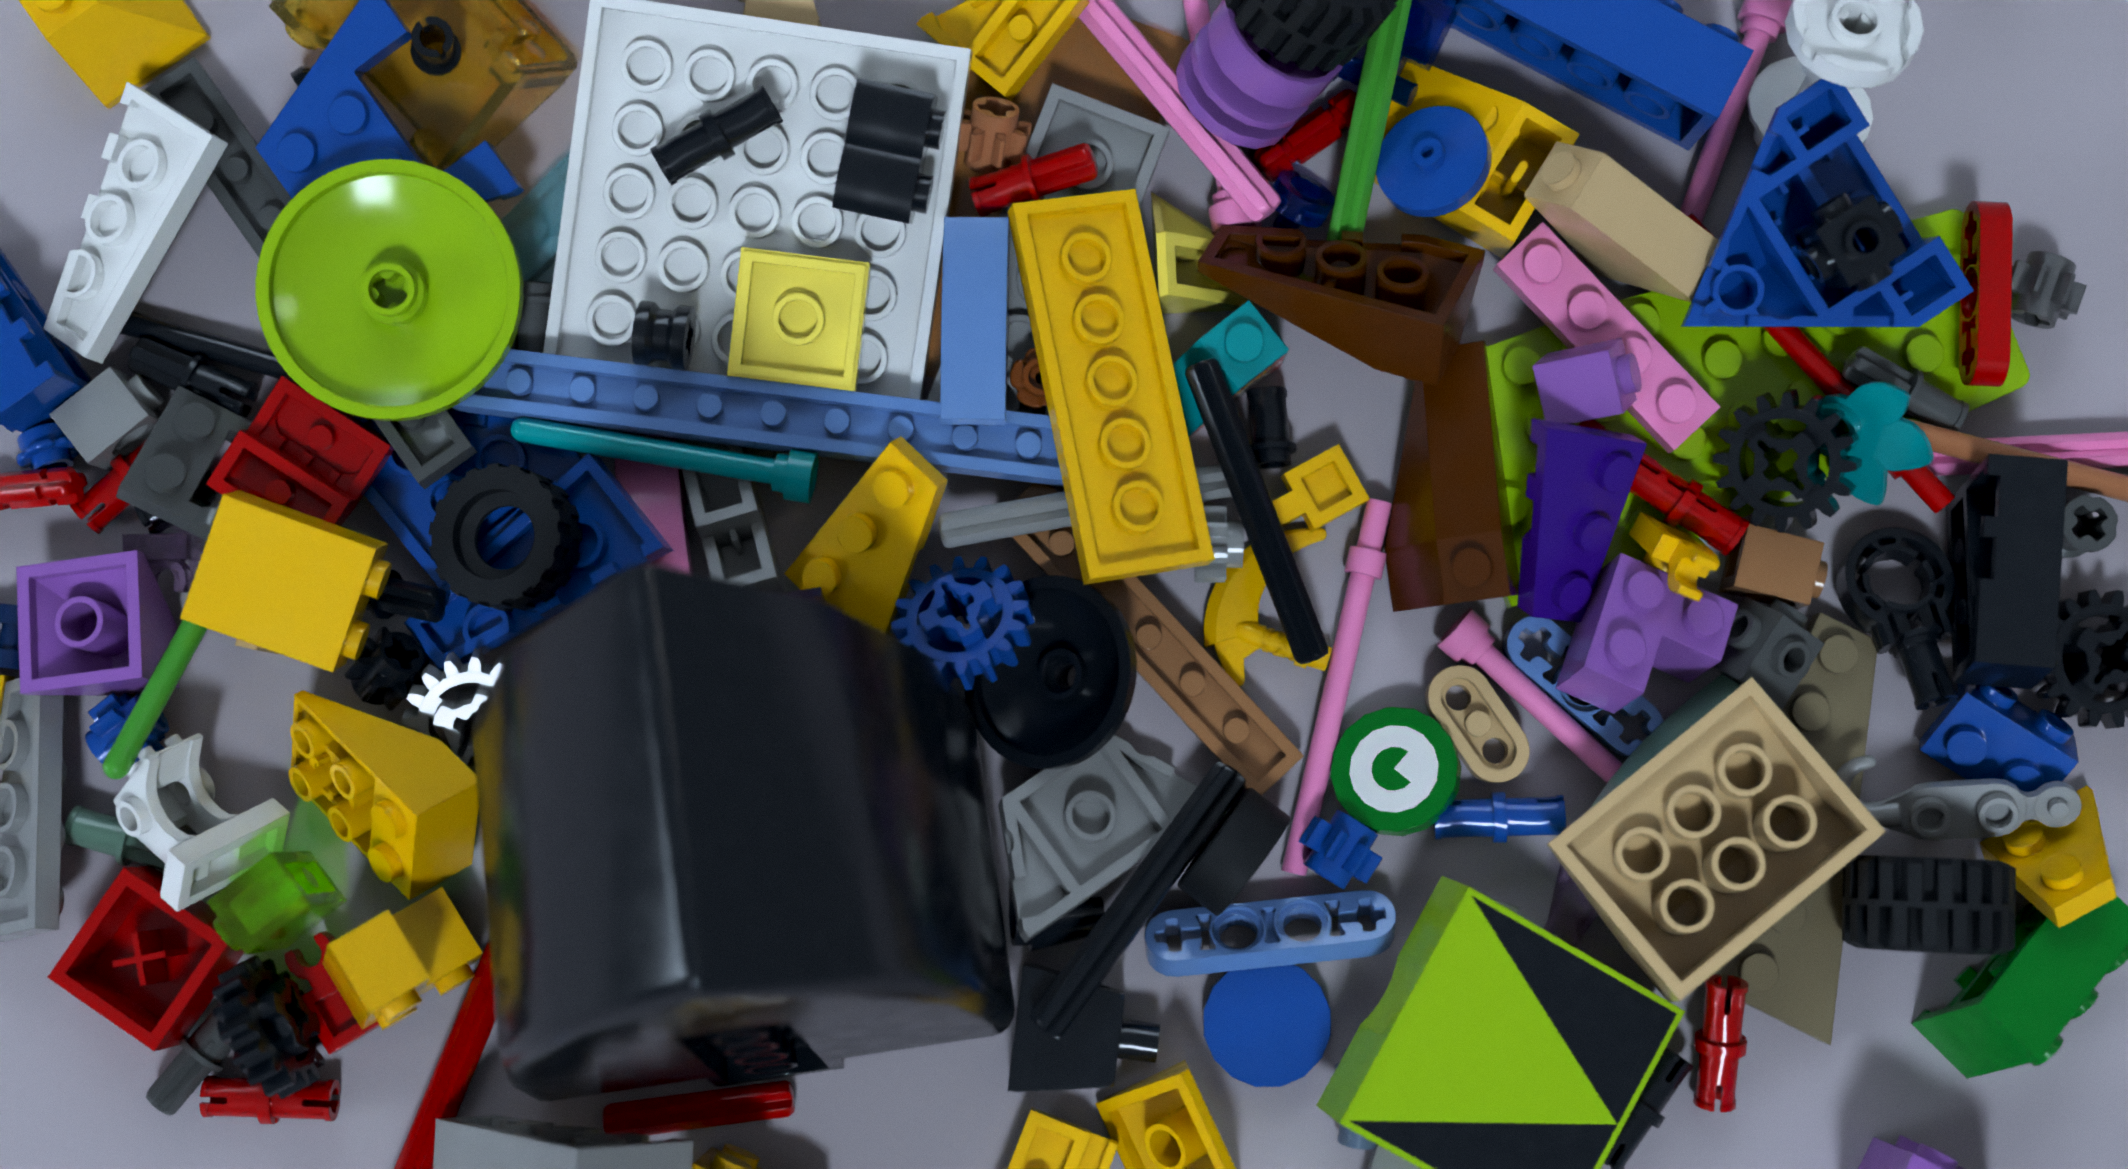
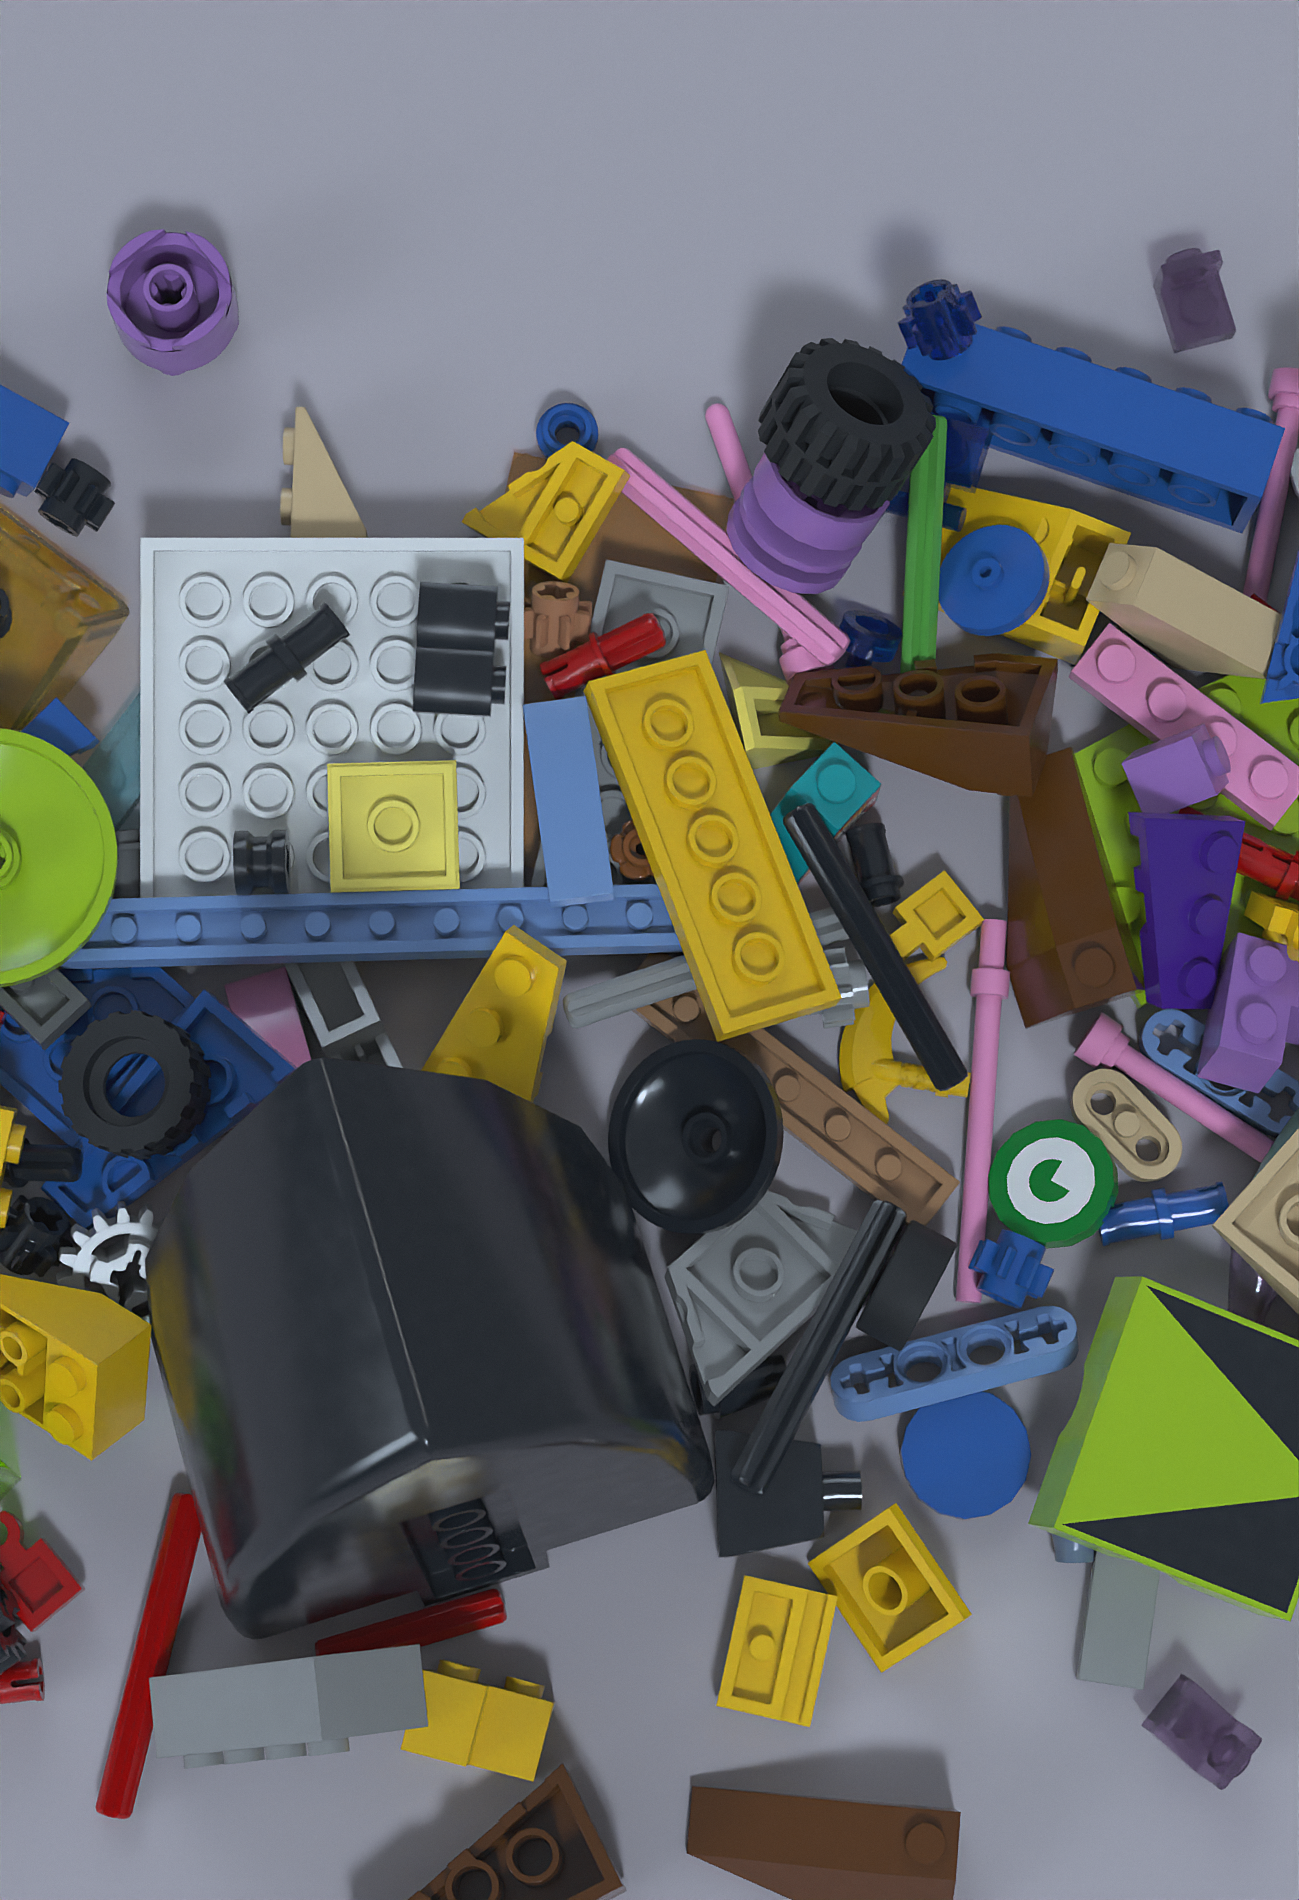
camera: 15 degrees left, 5 degrees down
(399, 957) = (89, 1521): yellow brick -> none
(790, 474) = (406, 979): teal piece -> none
(986, 600) = (609, 1093): blue gear -> none
(1307, 136) = (865, 574): red axle -> none

